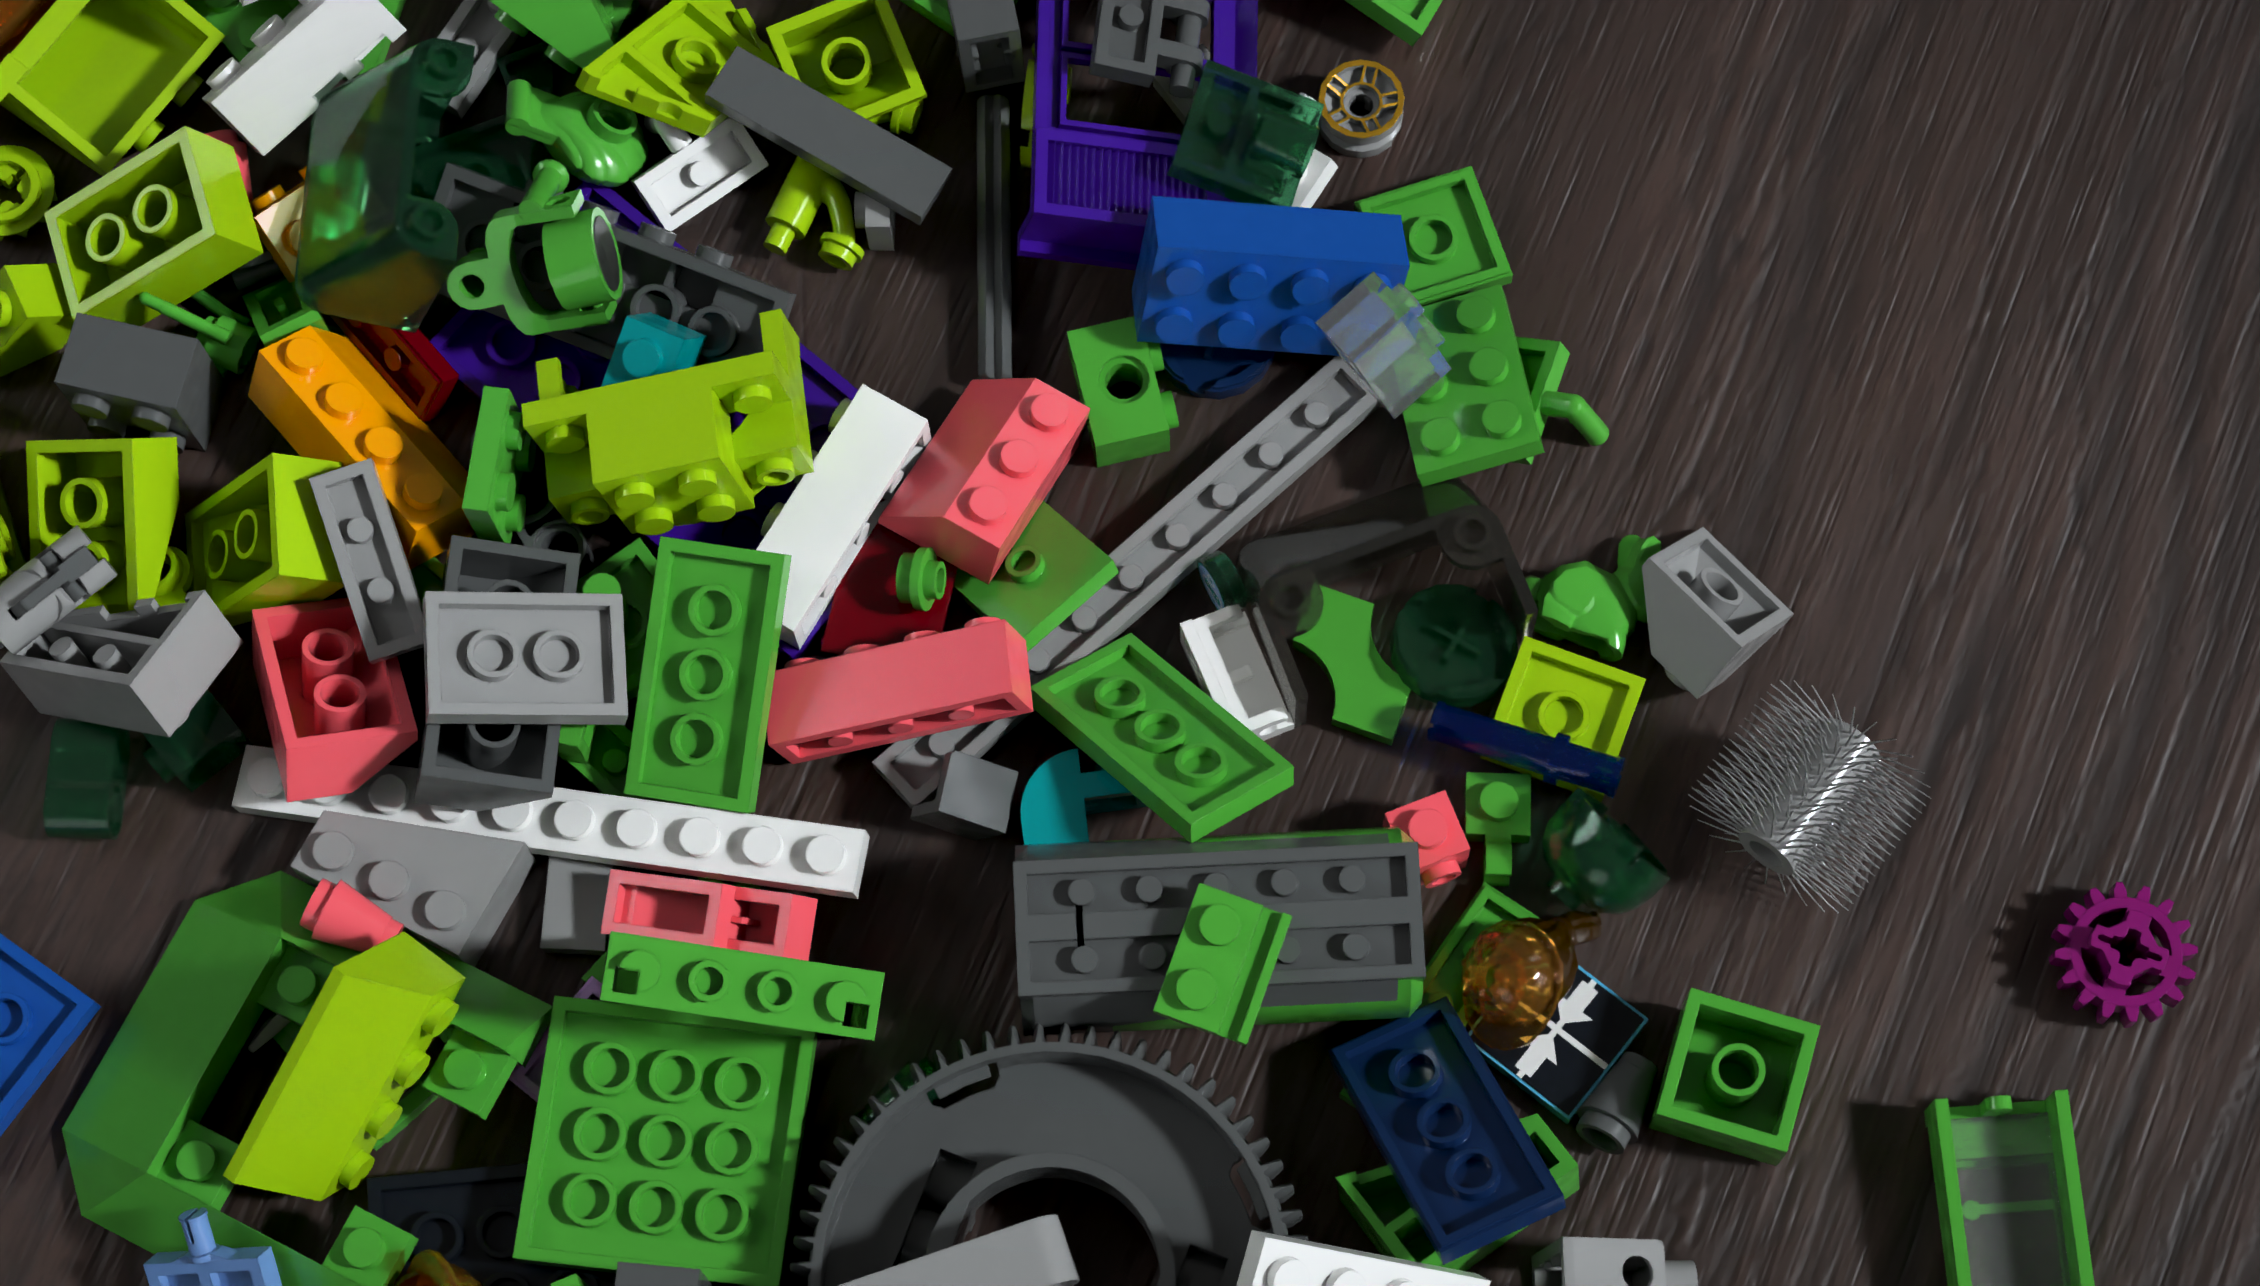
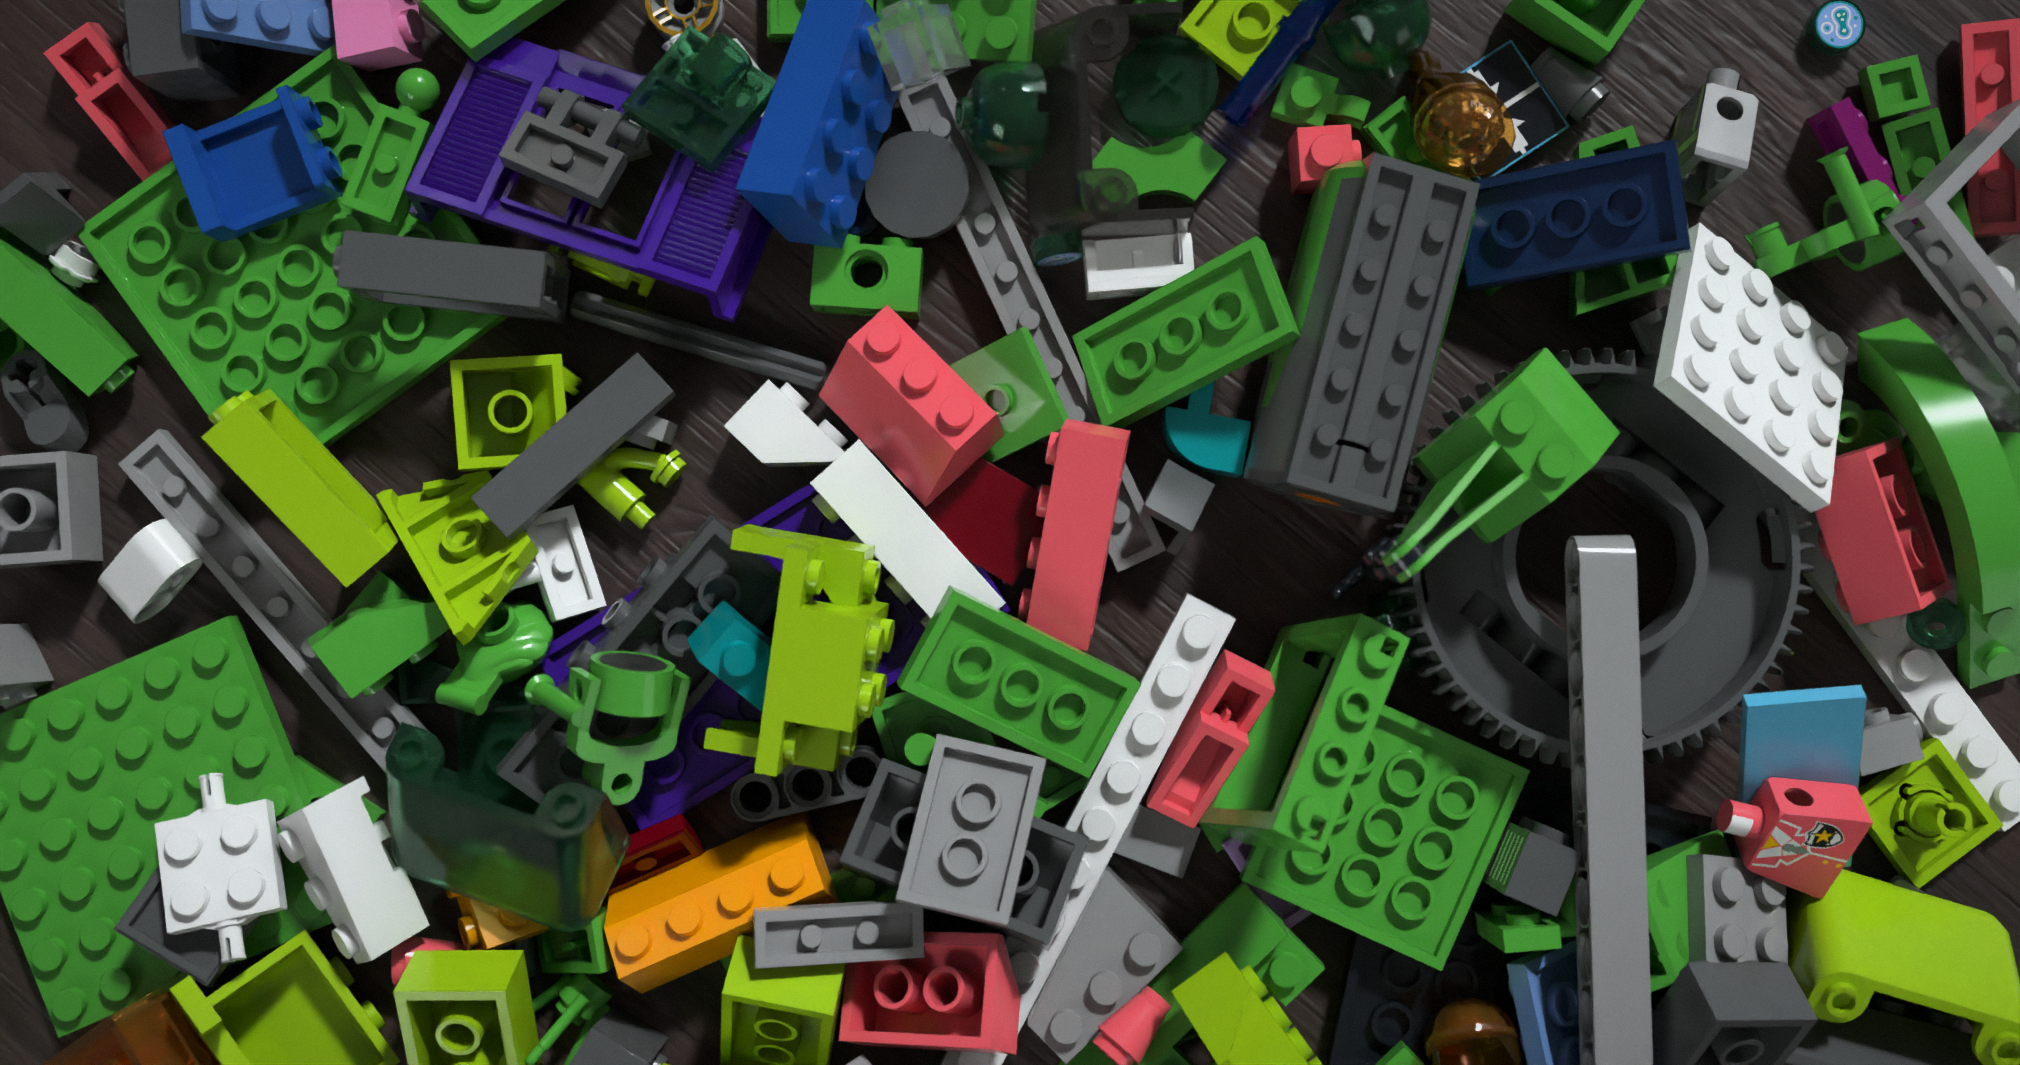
camera: 75 degrees left, 15 degrees up
(496, 468) = (812, 815): bright green plate -> none
(920, 579) = (986, 487): bright green plate -> none
(921, 349) = (780, 431): none -> white slope
(1115, 1100) = (1496, 466): none -> bright green slope
(1222, 964) = (1425, 340): bright green plate -> none
(1240, 407) = (918, 185): none -> dark grey tile
(1347, 465) = (1003, 115): none -> clear green cylinder

